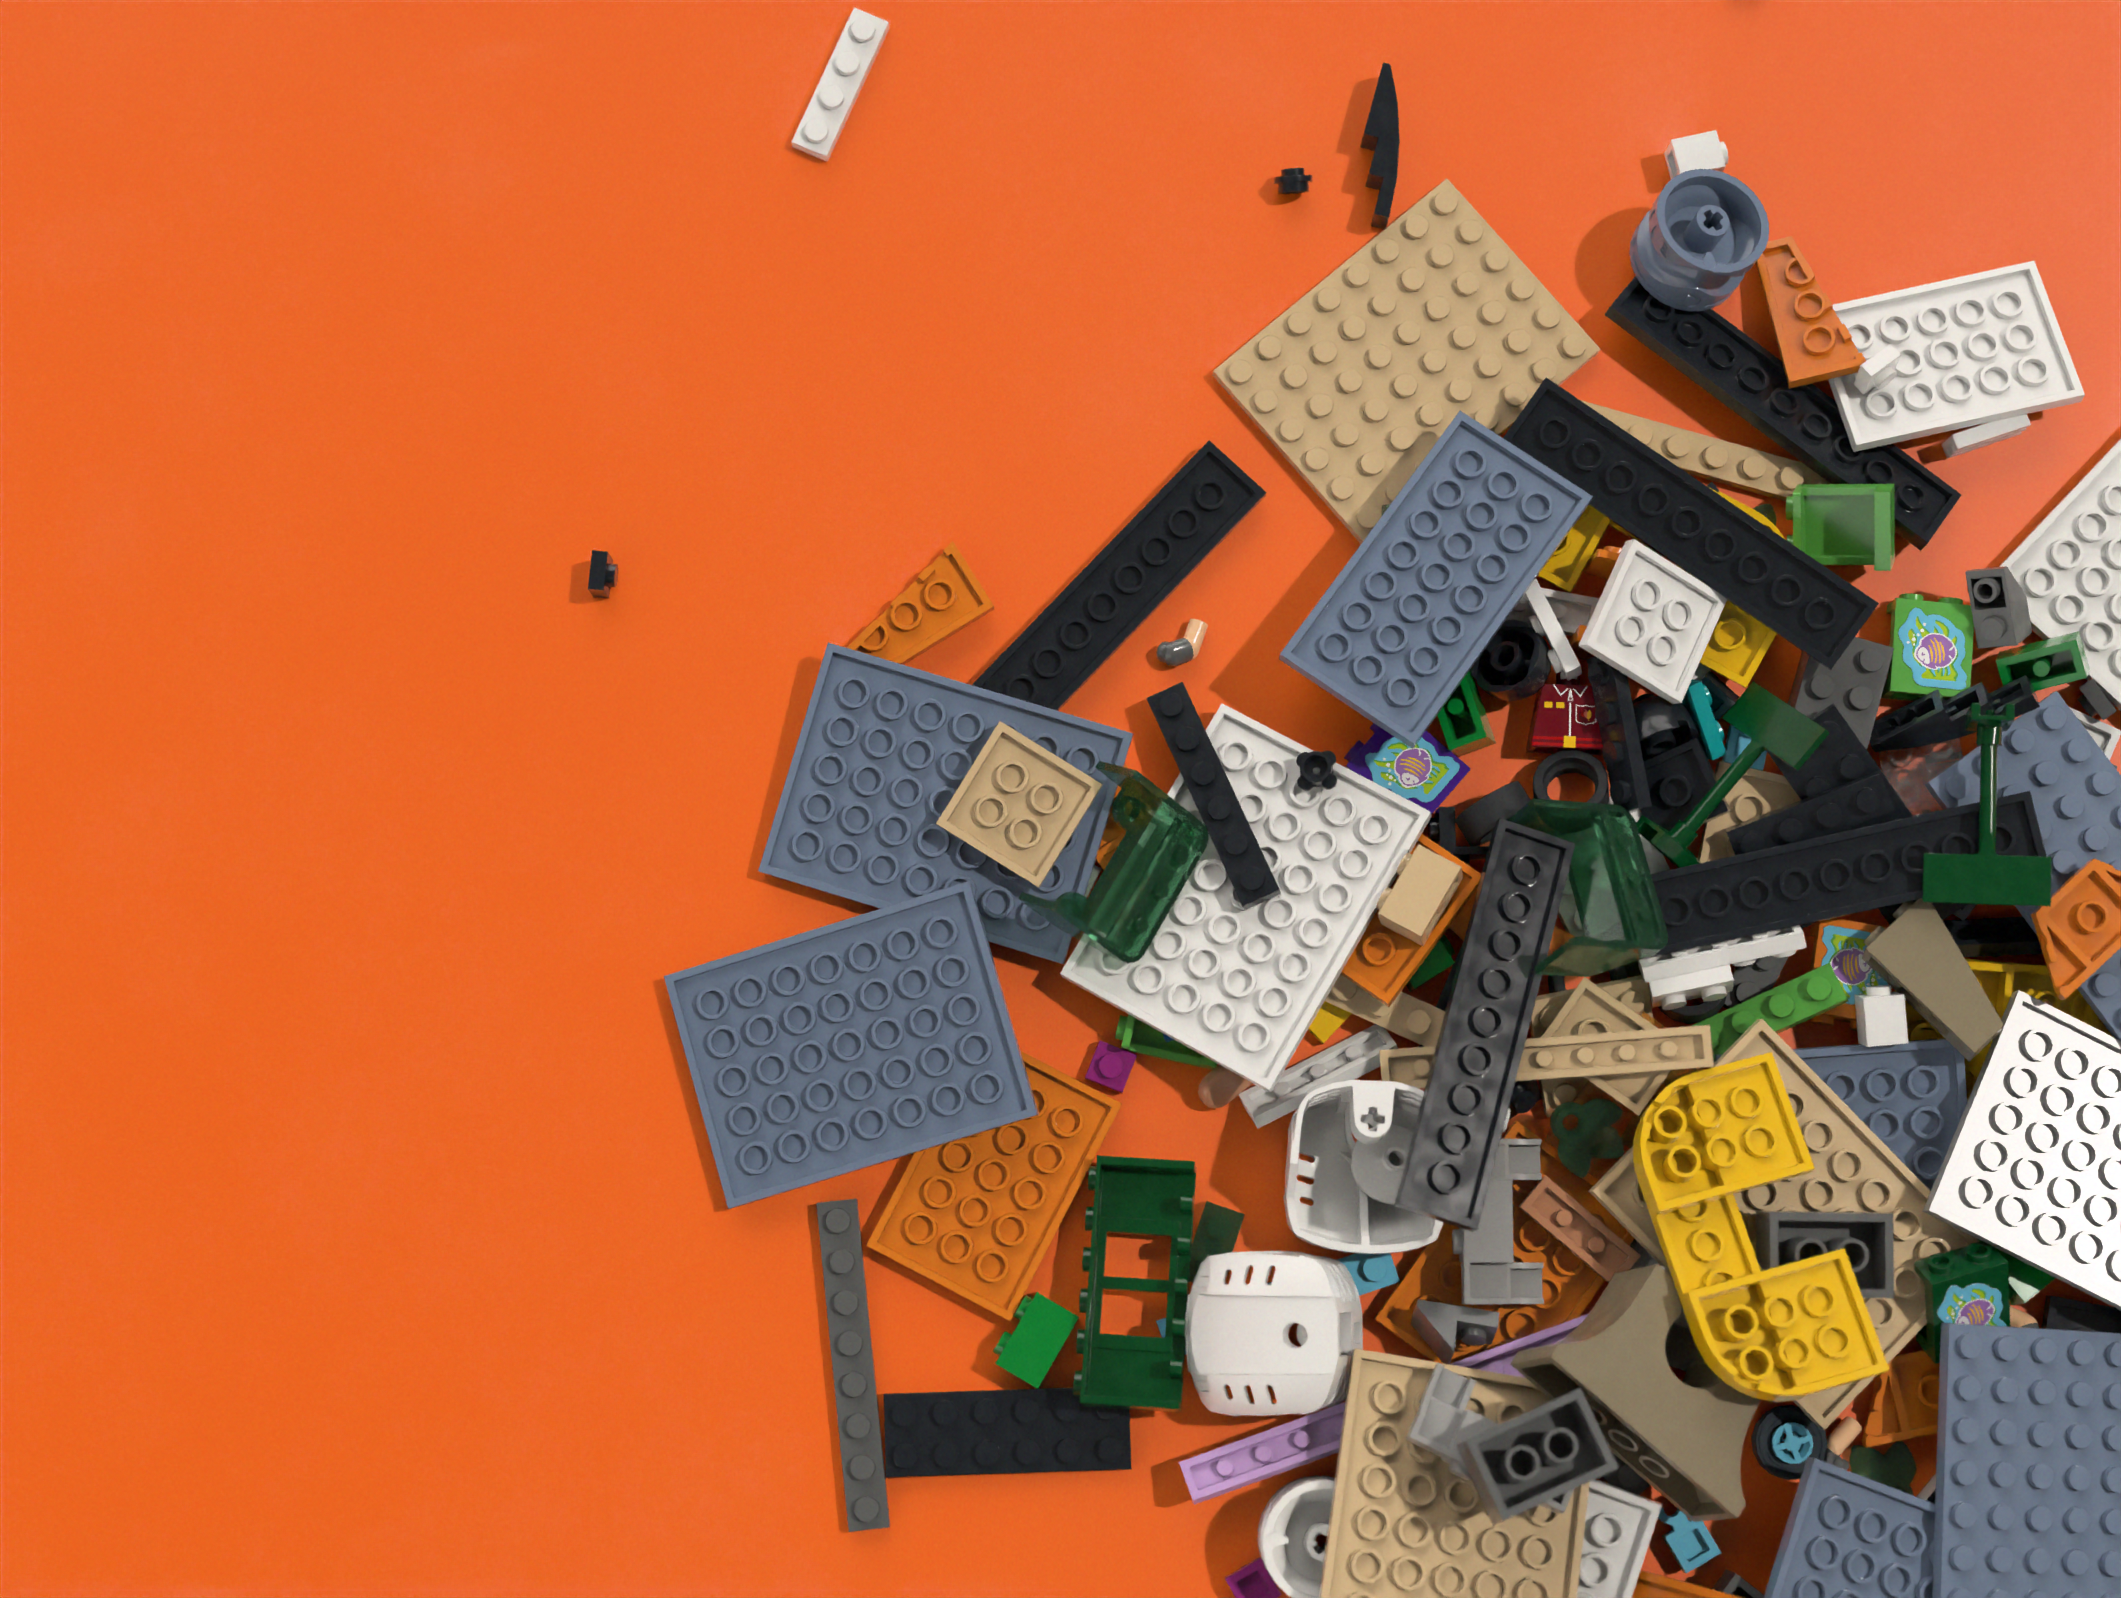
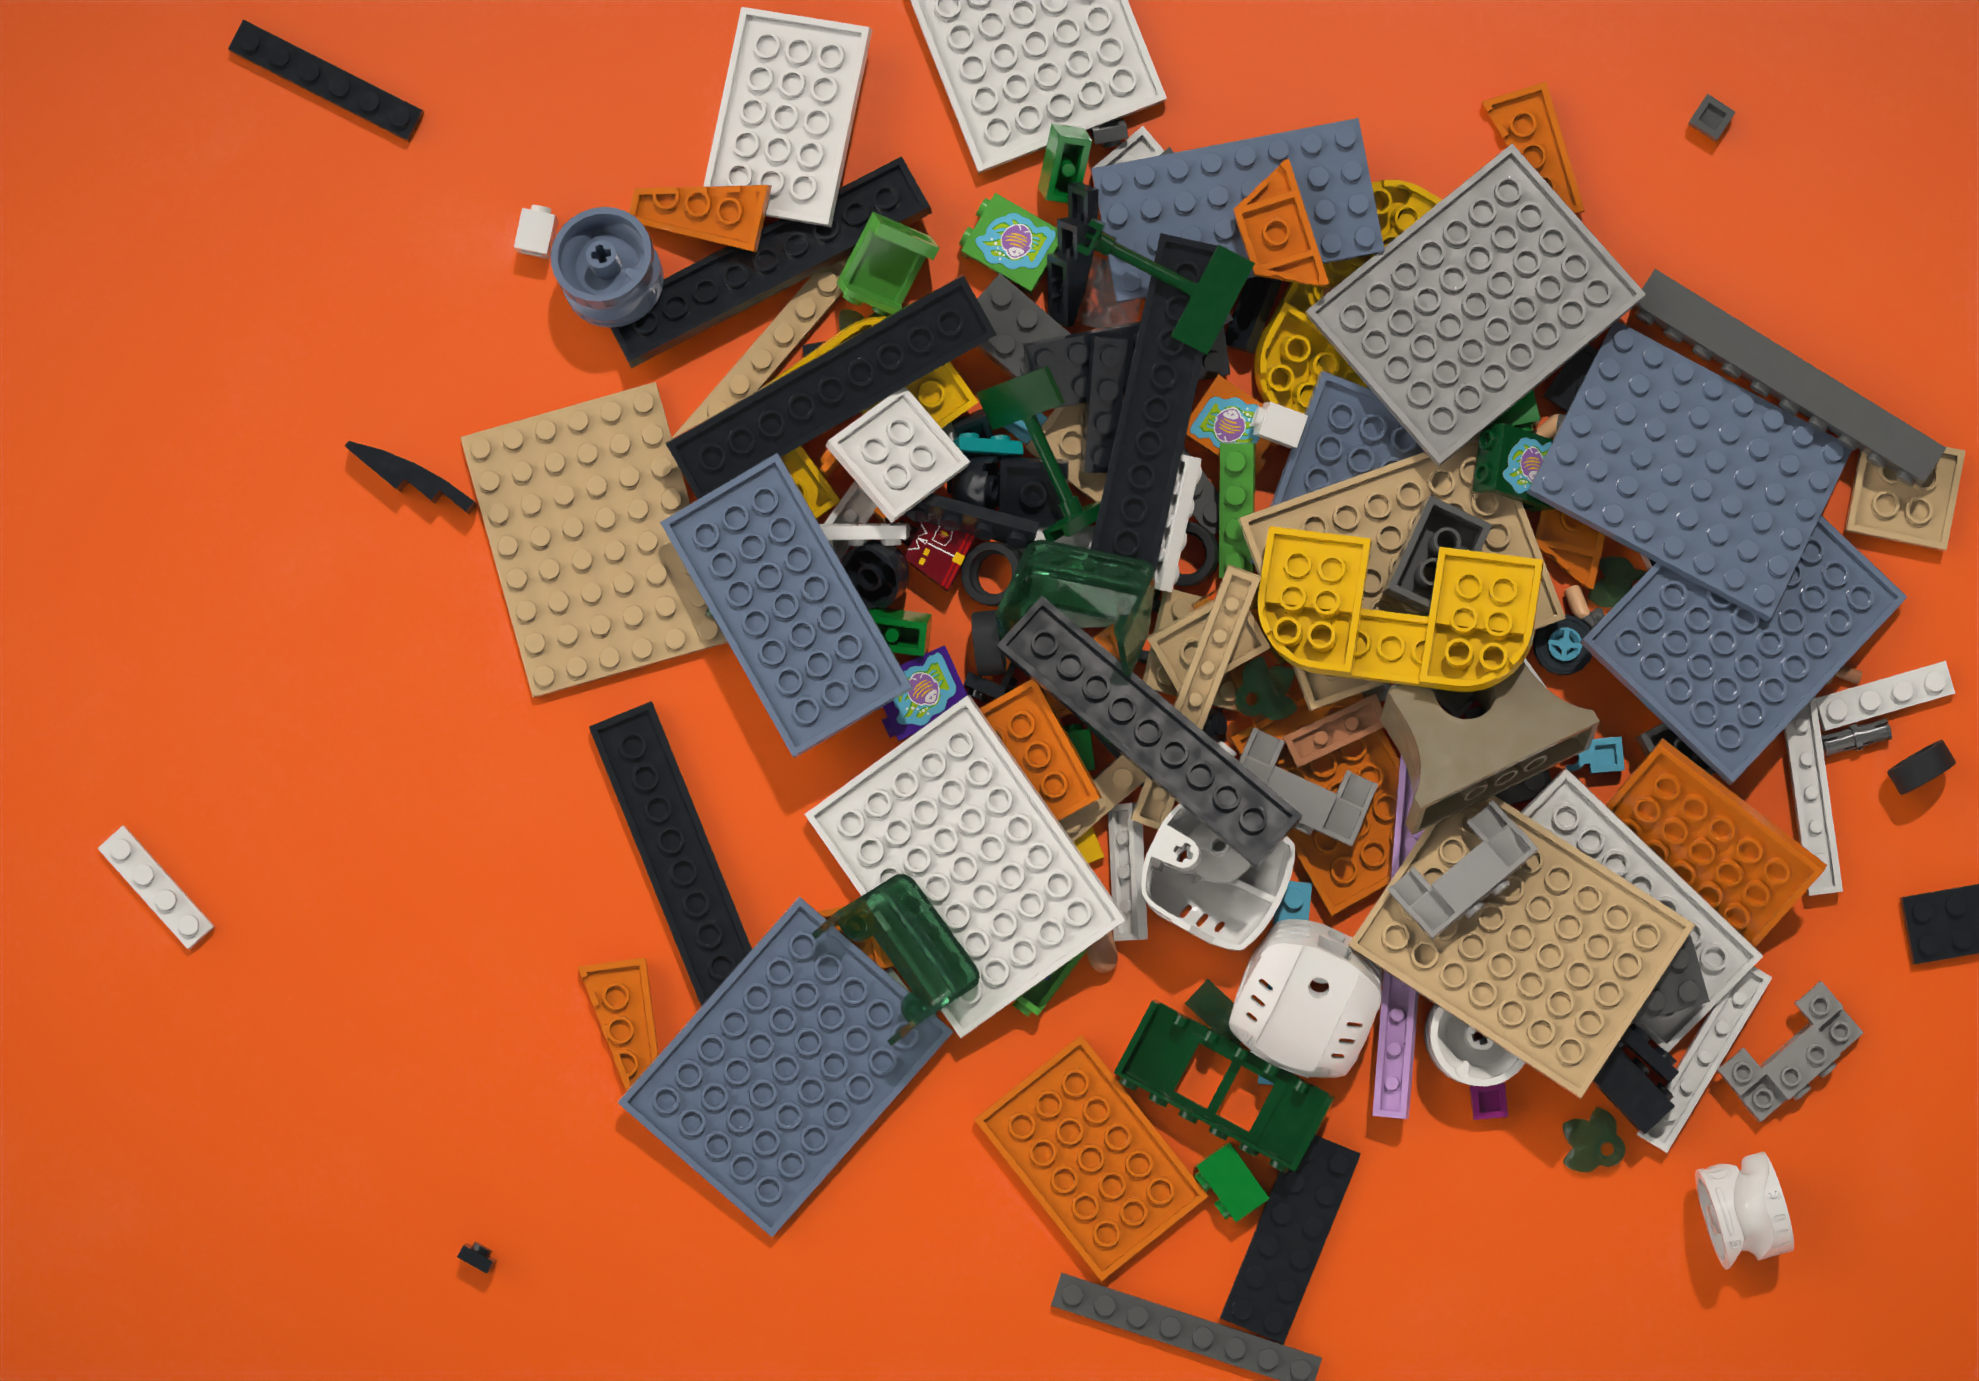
camera: 65 degrees left, 5 degrees up
(850, 1045) = (941, 1225): sand blue plate -> none
(1019, 804) = (815, 1010): tan plate -> none
(1110, 1066) = (1048, 1029): magenta plate -> none
(1185, 648) = (746, 822): arm -> none
(1213, 796) = (875, 855): black plate -> none
(1293, 181) = (406, 561): black plate -> none
(1316, 759) = (884, 770): black plate -> none
(1419, 894) = (1027, 735): tan brick -> none
(1444, 1323) = (1358, 867): dark grey slope -> none
(1537, 1456) = (1488, 852): dark grey brick -> none
(1676, 990) = (1188, 572): white plate -> none
(1878, 370) = (777, 179): white plate -> none
(1929, 969) = (1262, 372): dark tan slope -> none
(1984, 435) = (862, 115): white tile -> none
(1997, 607) = (1006, 177): dark grey slope -> none

